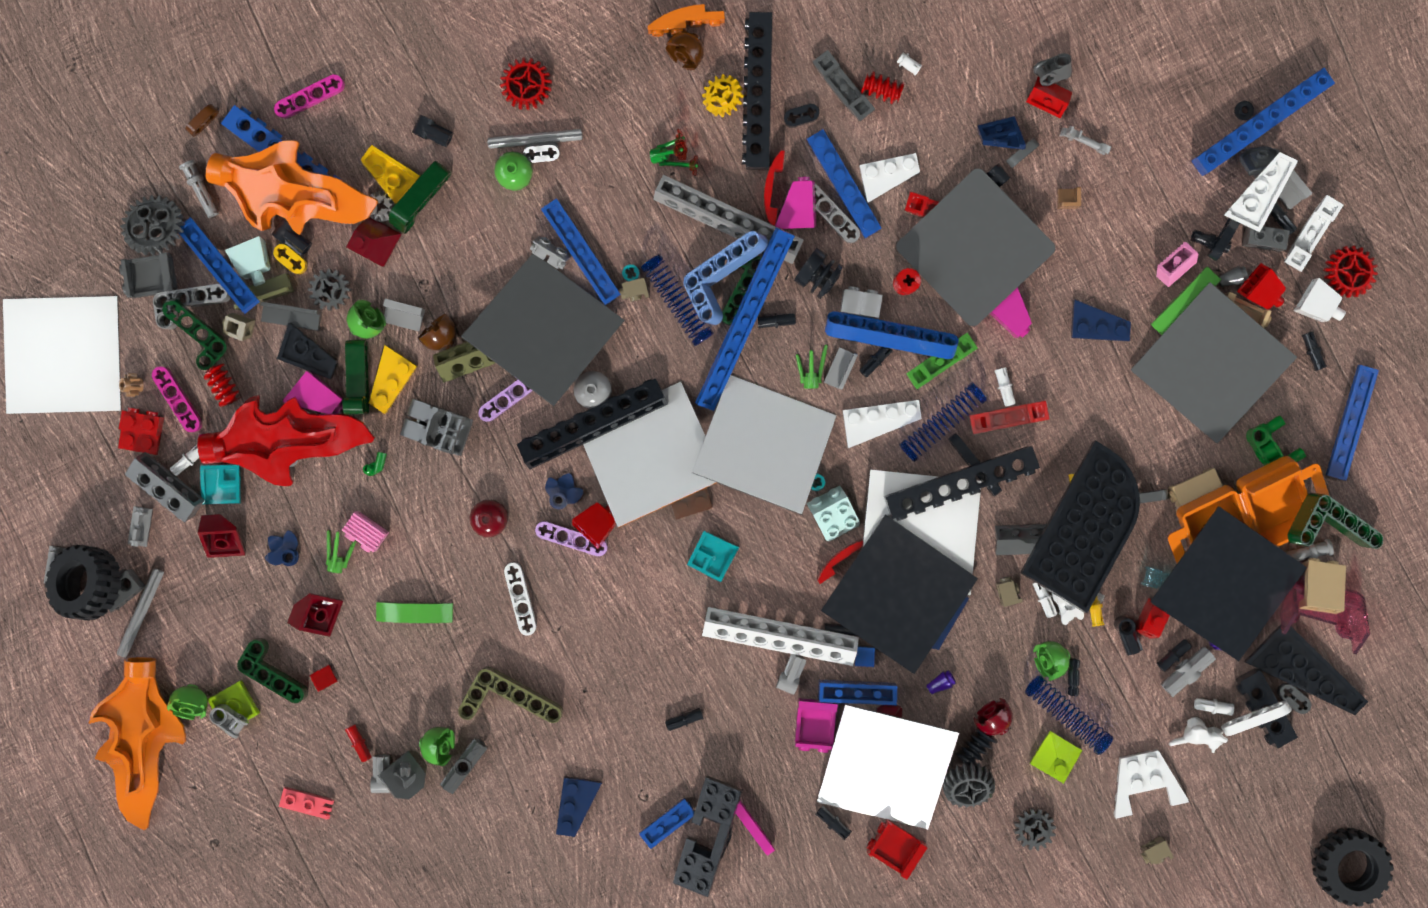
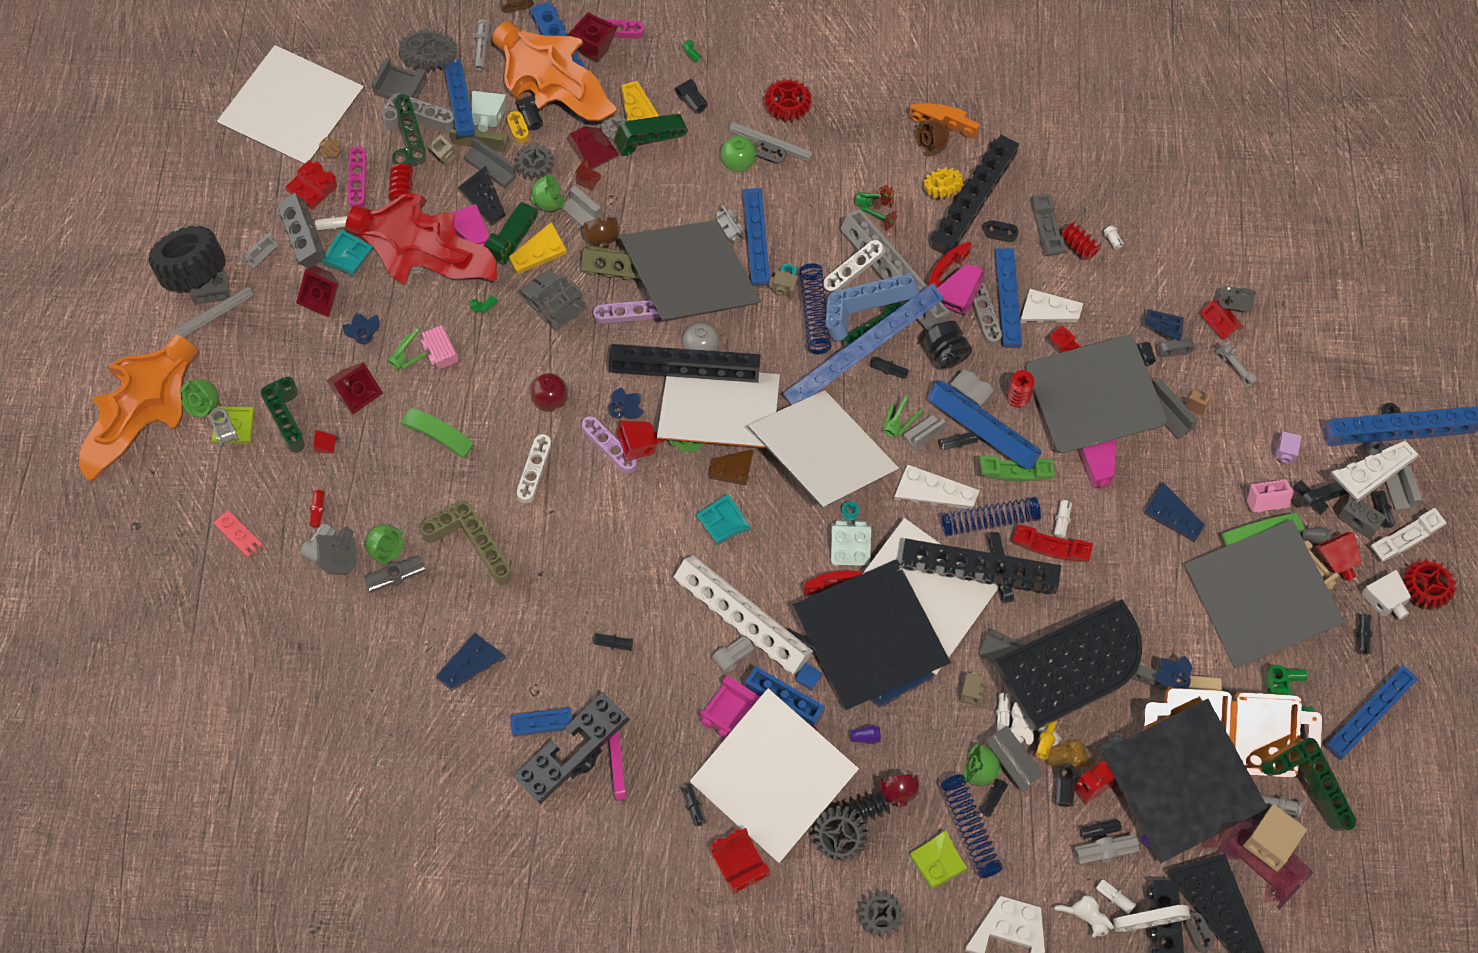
camera: 30 degrees right, 25 degrees down
(299, 120) = (595, 34): none -> dark red slope
(388, 276) = (586, 177): none -> clear red panel
(401, 80) = (691, 52): none -> green arm
(691, 239) = (852, 263): none -> white beam
(1050, 223) = (1179, 417): none -> dark grey panel
(1075, 639) = (1014, 757): none -> dark grey panel
(1120, 603) = (1071, 754): none -> clear yellow piece
(1170, 203) = (1288, 447): none -> lavender brick
(1172, 485) = (1174, 671): none -> dark blue plate

